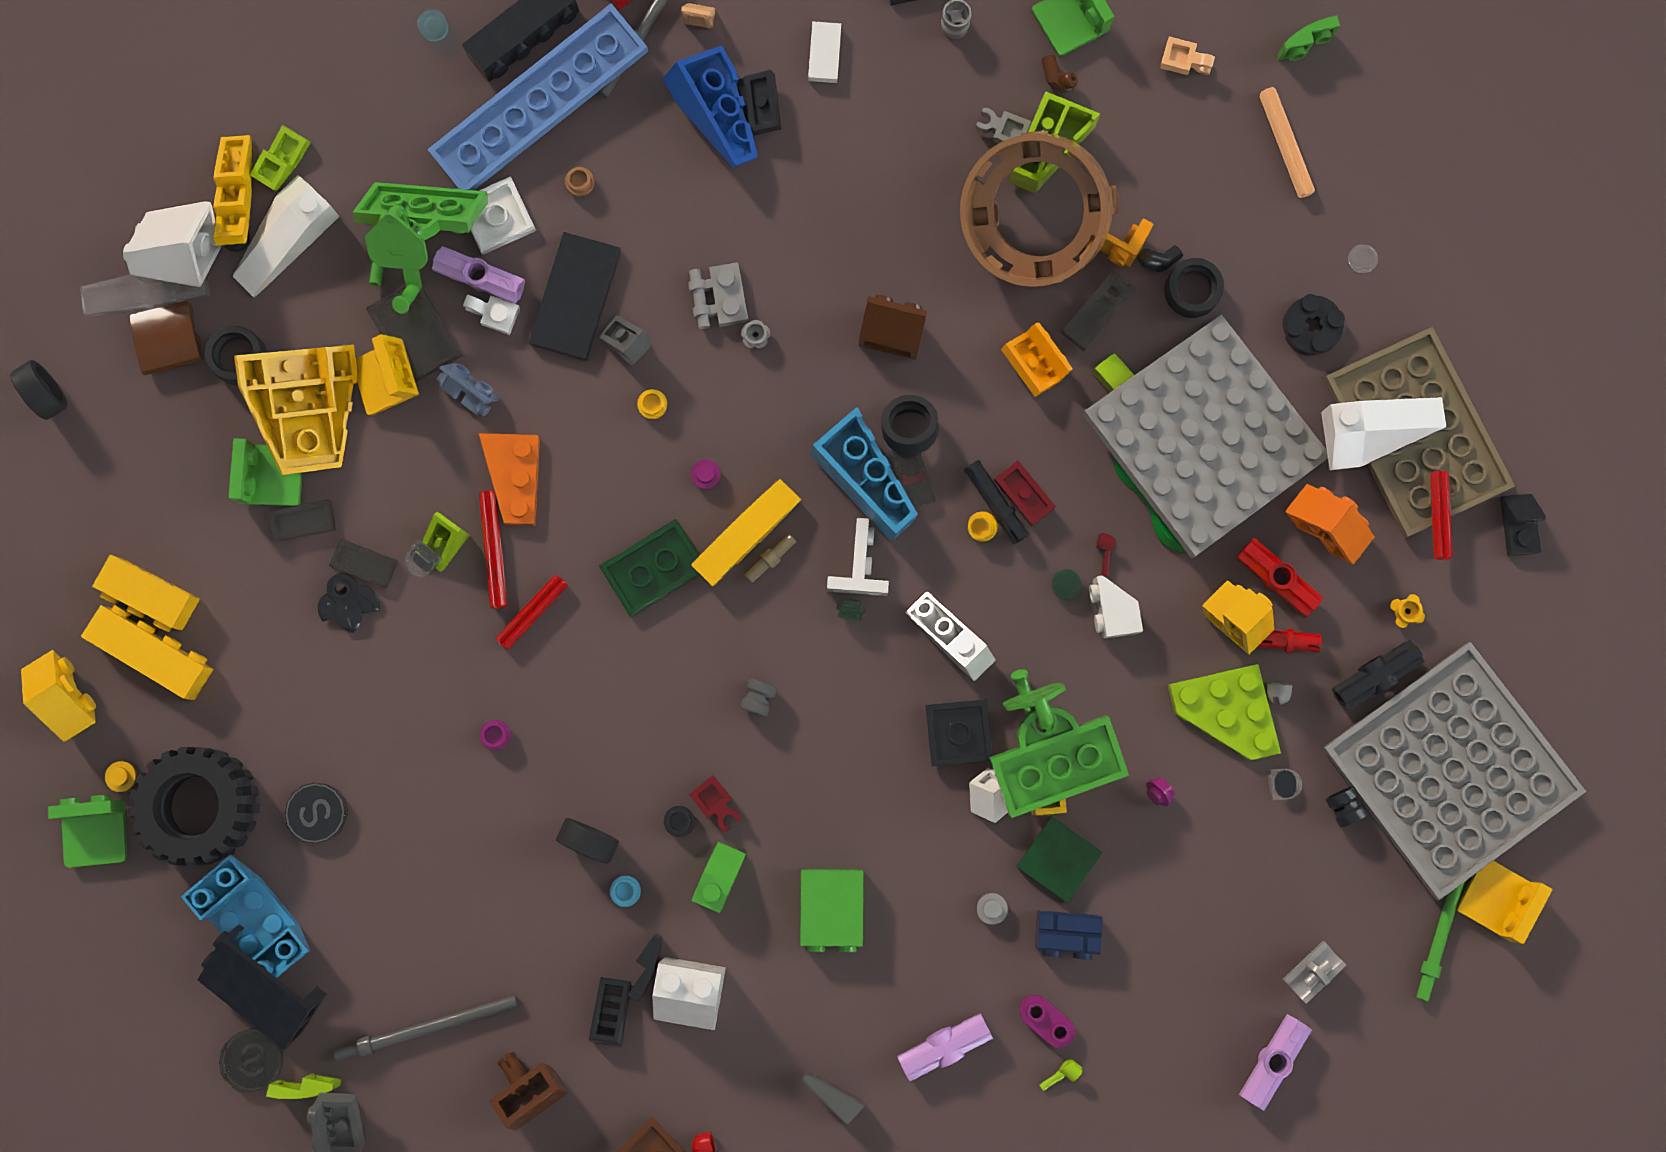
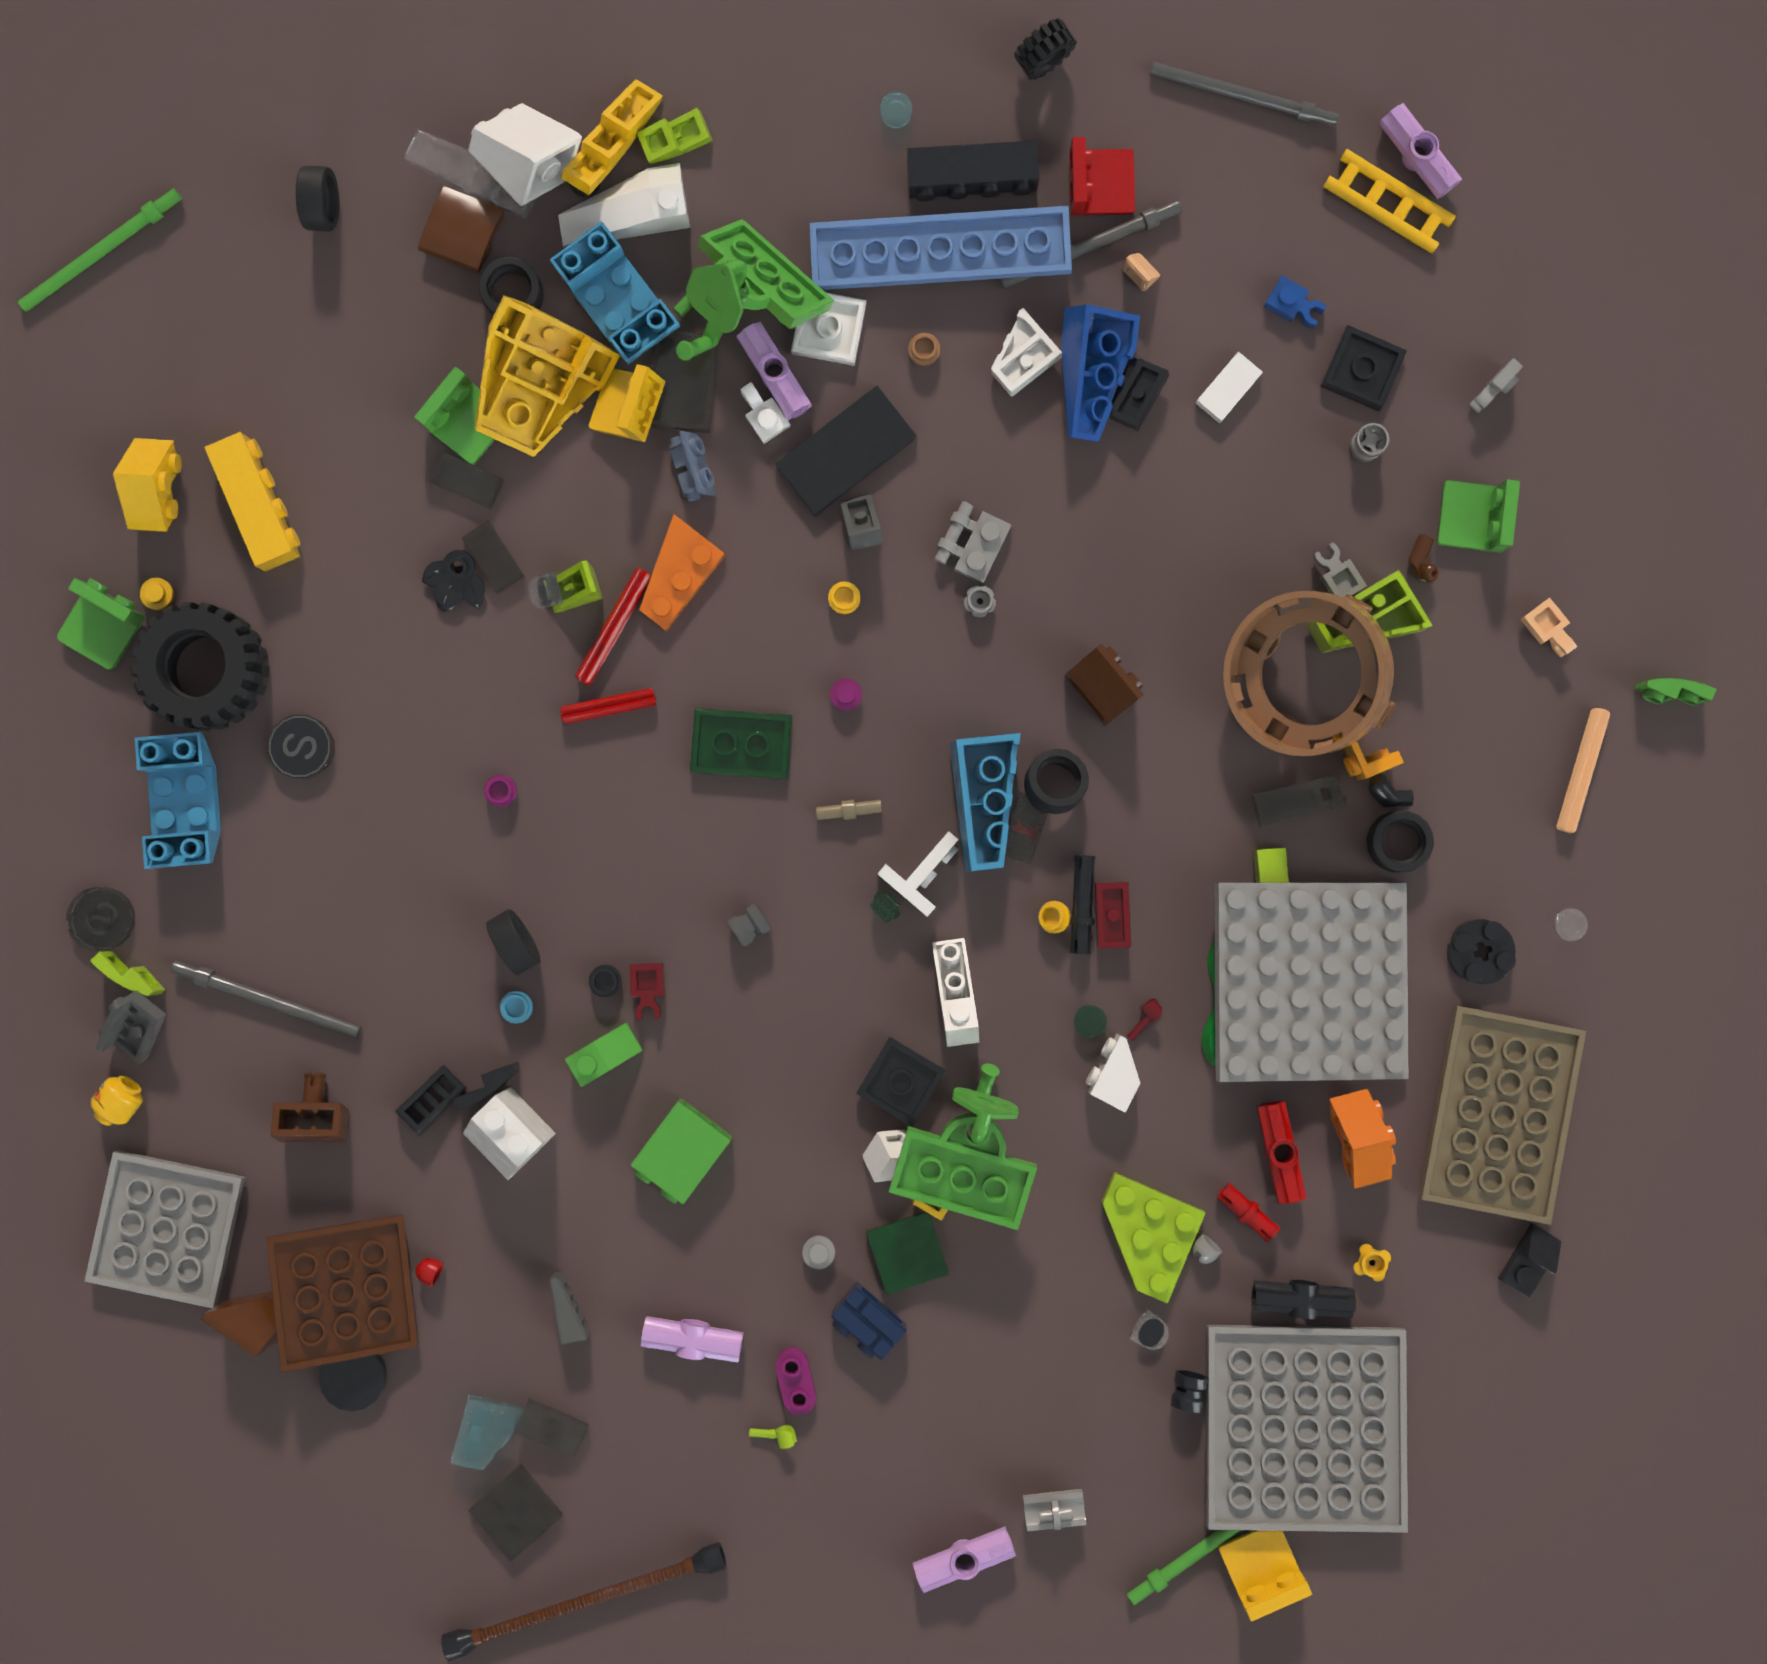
camera: 35 degrees right, 5 degrees up
(145, 594) = (286, 448): yellow brick -> none
(256, 992) = (141, 865): black panel -> none
(316, 303) = (614, 293): none -> dark azure slope
(657, 133) = (1024, 355): none -> white wing
(746, 532) = (843, 772): yellow slope -> none
(1037, 359) = (1211, 804): light orange bracket -> none
(1160, 791) = (1037, 1259): magenta plate -> none
(1240, 615) = (1221, 1161): yellow brick -> none
(1373, 428) = (1461, 1084): white wedge -> none
(1441, 515) = (1465, 1203): red axle -> none

